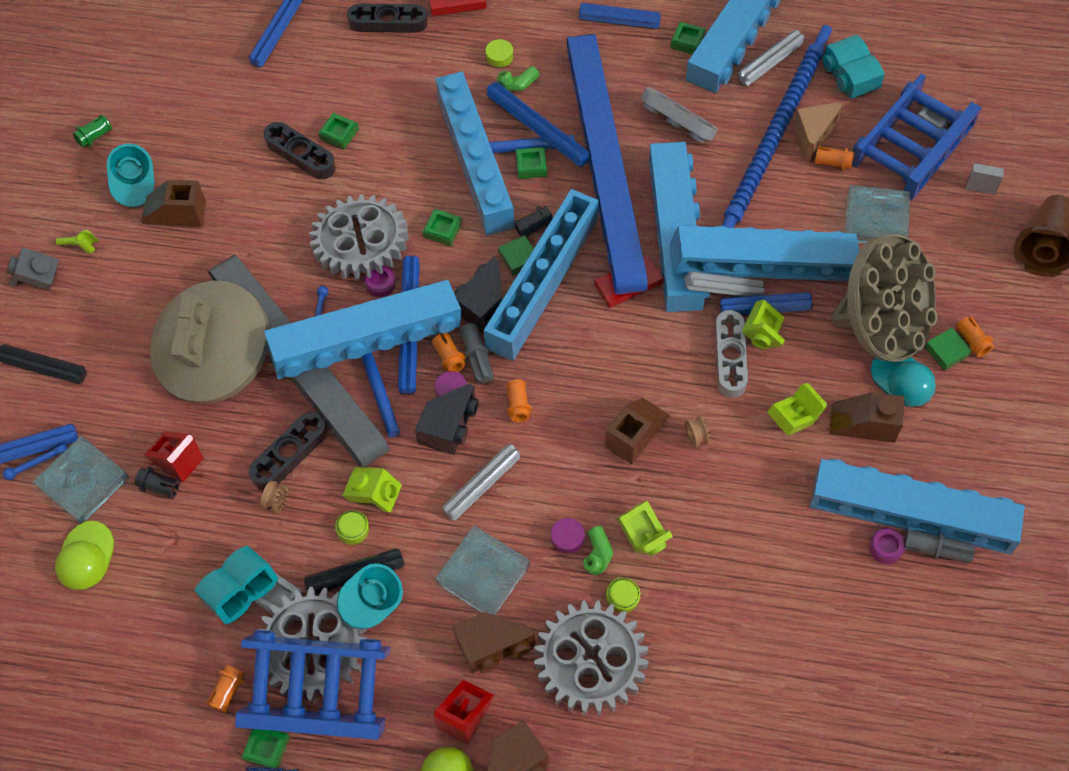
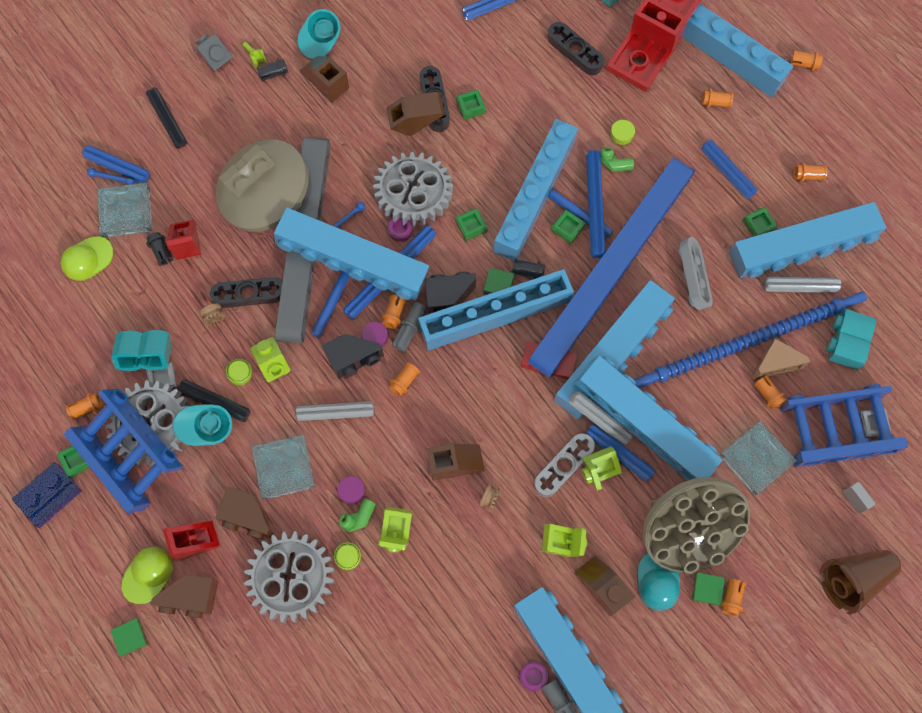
camera: 40 degrees right, 10 degrees up
(112, 240) = (272, 69): none -> black pin
(298, 168) = (415, 112): none -> reddish brown slope

